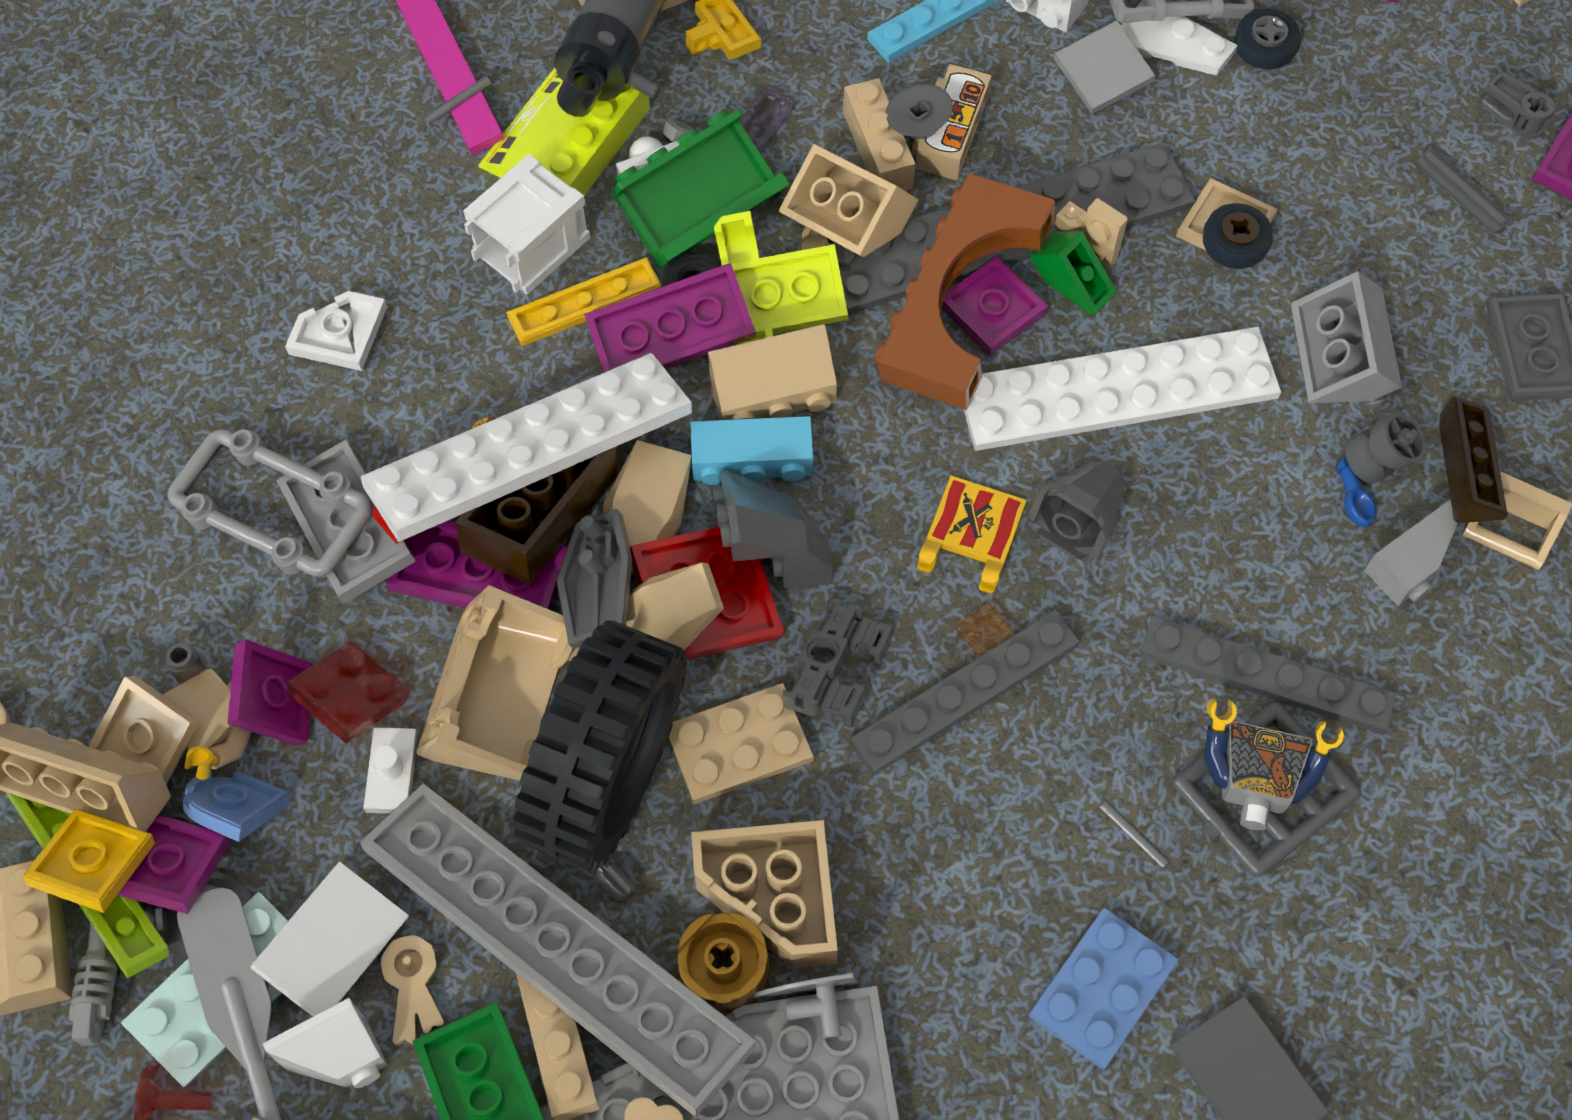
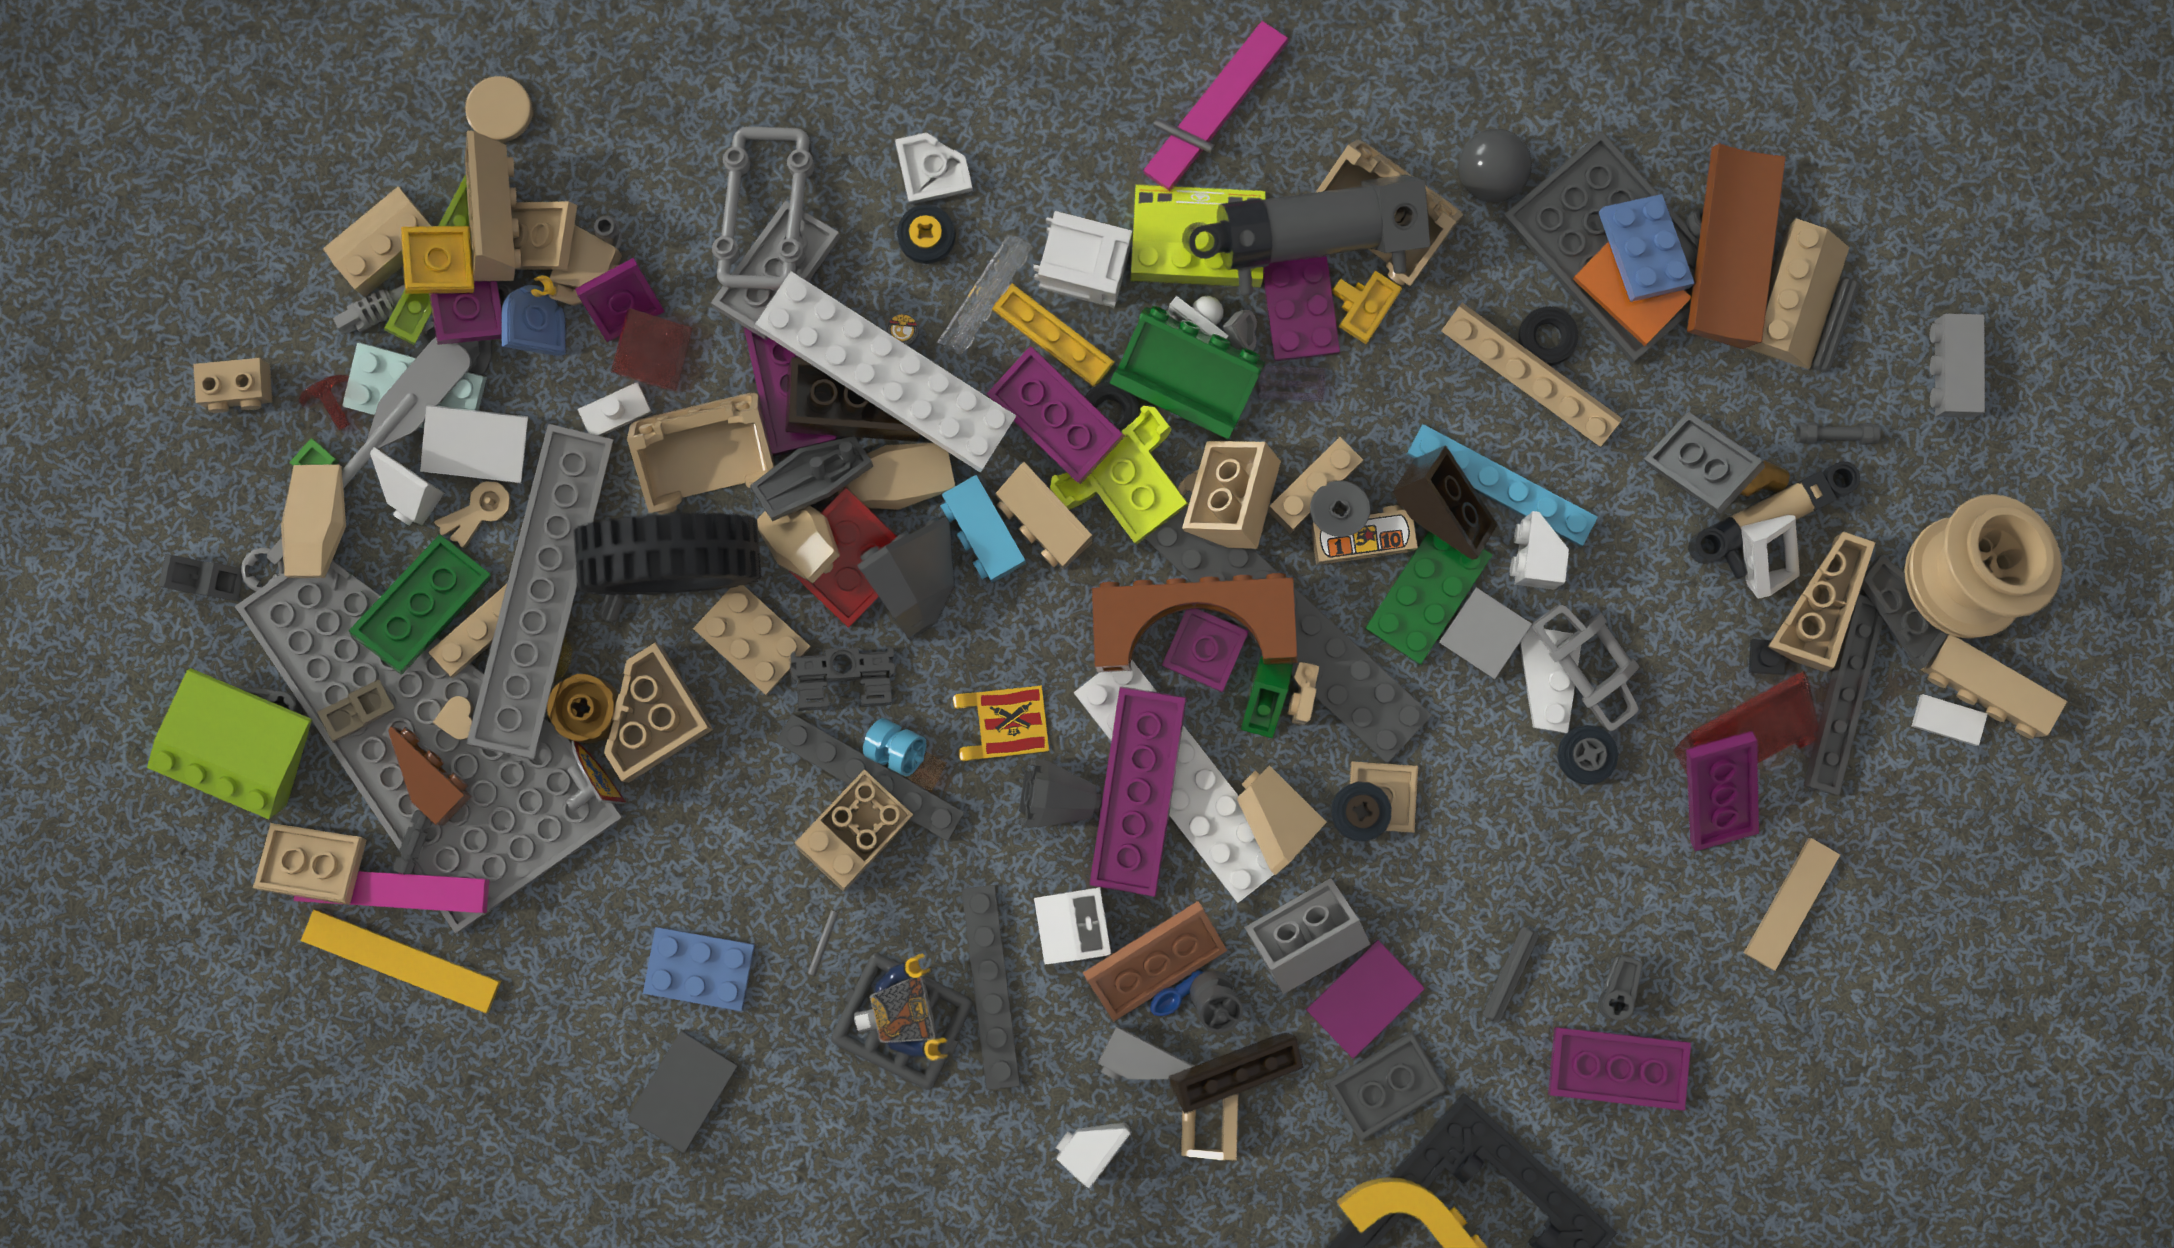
camera: 65 degrees right, 20 degrees up
(407, 378) = (934, 243): none -> black wheel
(502, 338) = (984, 294): none -> clear plate
(695, 81) = (1300, 309): none -> magenta plate
(940, 38) = (1445, 502): none -> dark brown slope
(947, 639) = (888, 744): none -> medium azure wheel
(1023, 732) = (853, 830): none -> tan slope
(1038, 100) = (1425, 597): none -> green plate
(1119, 422) = (1138, 791): none -> magenta plate
(1210, 310) = (1277, 817): none -> tan slope
(1238, 551) = (1072, 926): none -> white slope
(1314, 489) = (1155, 961): none -> nougat plate
(1436, 326) = (1365, 999): none -> magenta tile
(1509, 639) = (1091, 1150): none -> white slope

